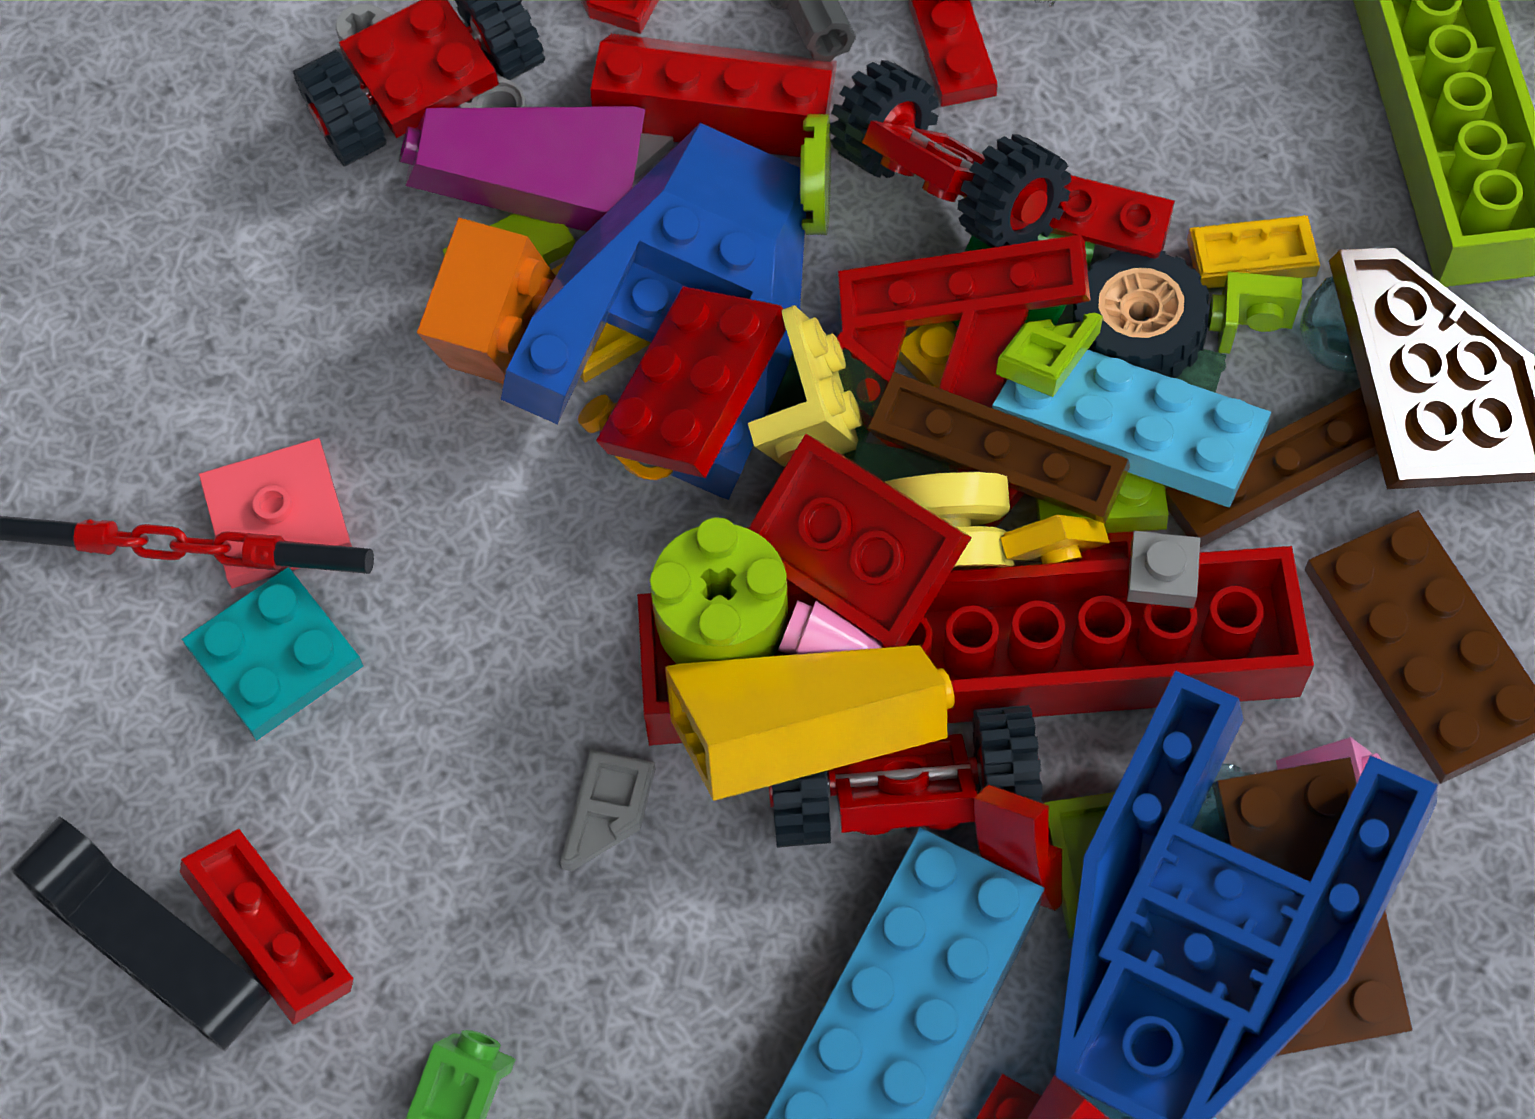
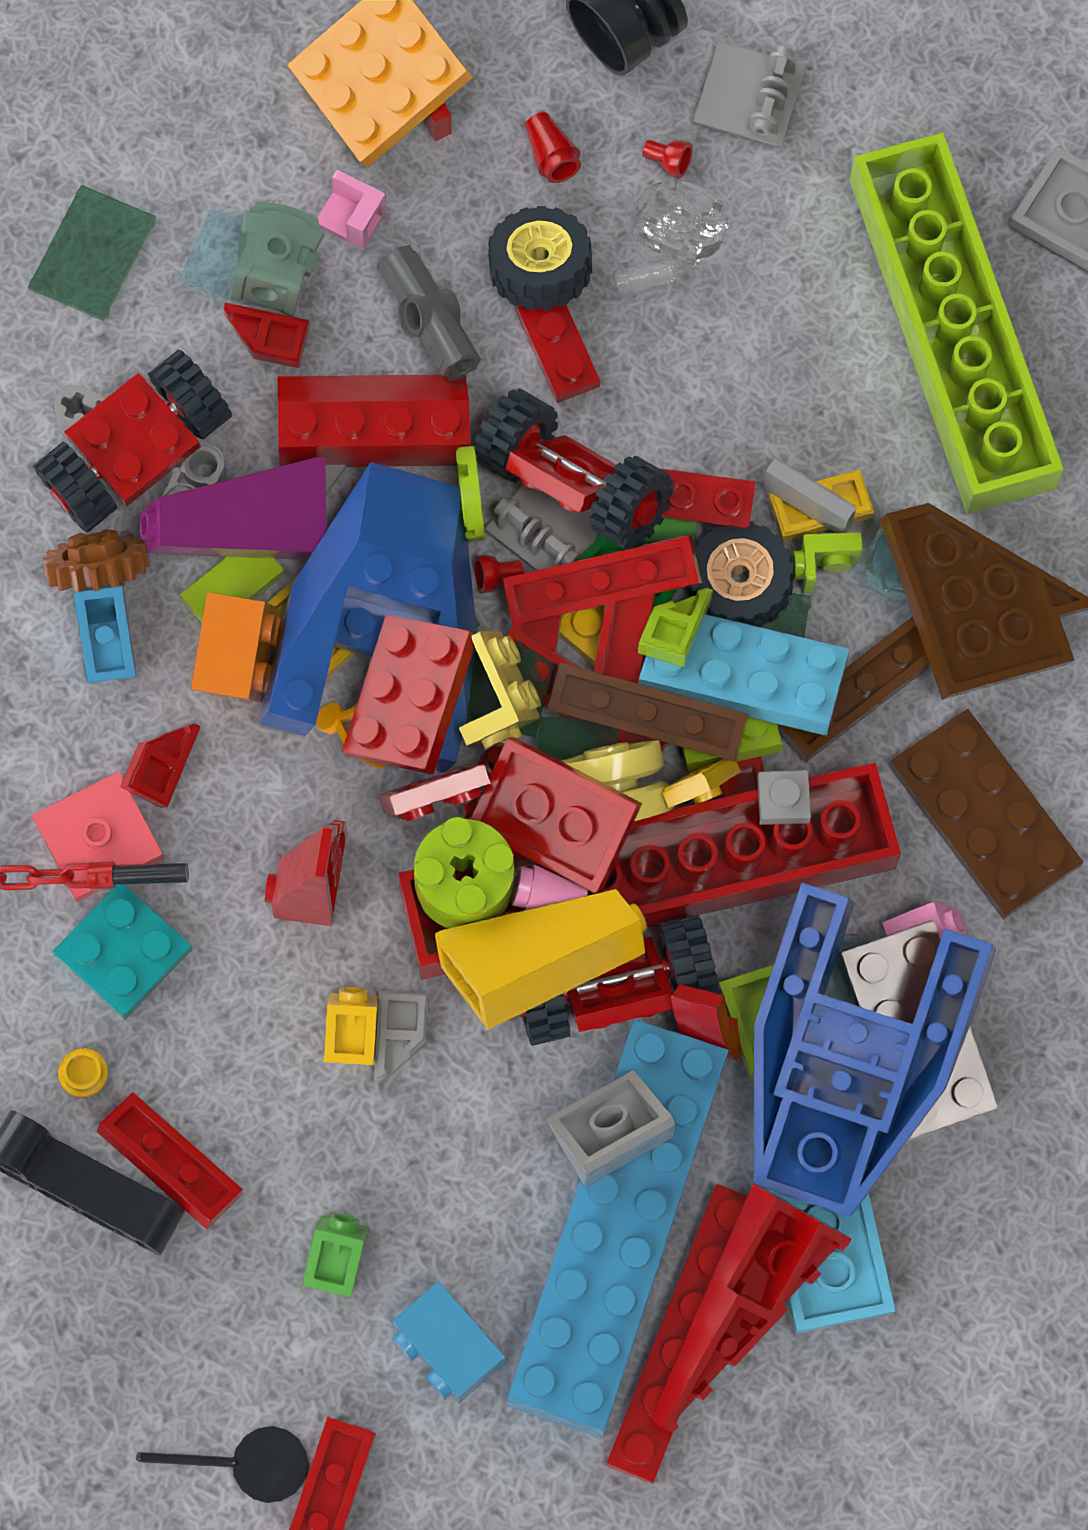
camera: 15 degrees left, 10 degrees up
(183, 796) = (83, 1073): none -> yellow plate
(337, 272) = (105, 633): none -> dark azure slope
(344, 192) = (96, 561): none -> dark orange gear
(370, 438) = (159, 765): none -> red tile
(530, 581) = (309, 877): none -> red wedge
(542, 789) = (351, 1026): none -> yellow bracket
(687, 497) = (450, 786): none -> plate
(823, 275) = (490, 571): none -> red piece
(865, 965) = (611, 1127): none -> light grey slope
(899, 223) = (540, 529): none -> light grey hinge
(1239, 227) = (809, 496): none -> light grey tile

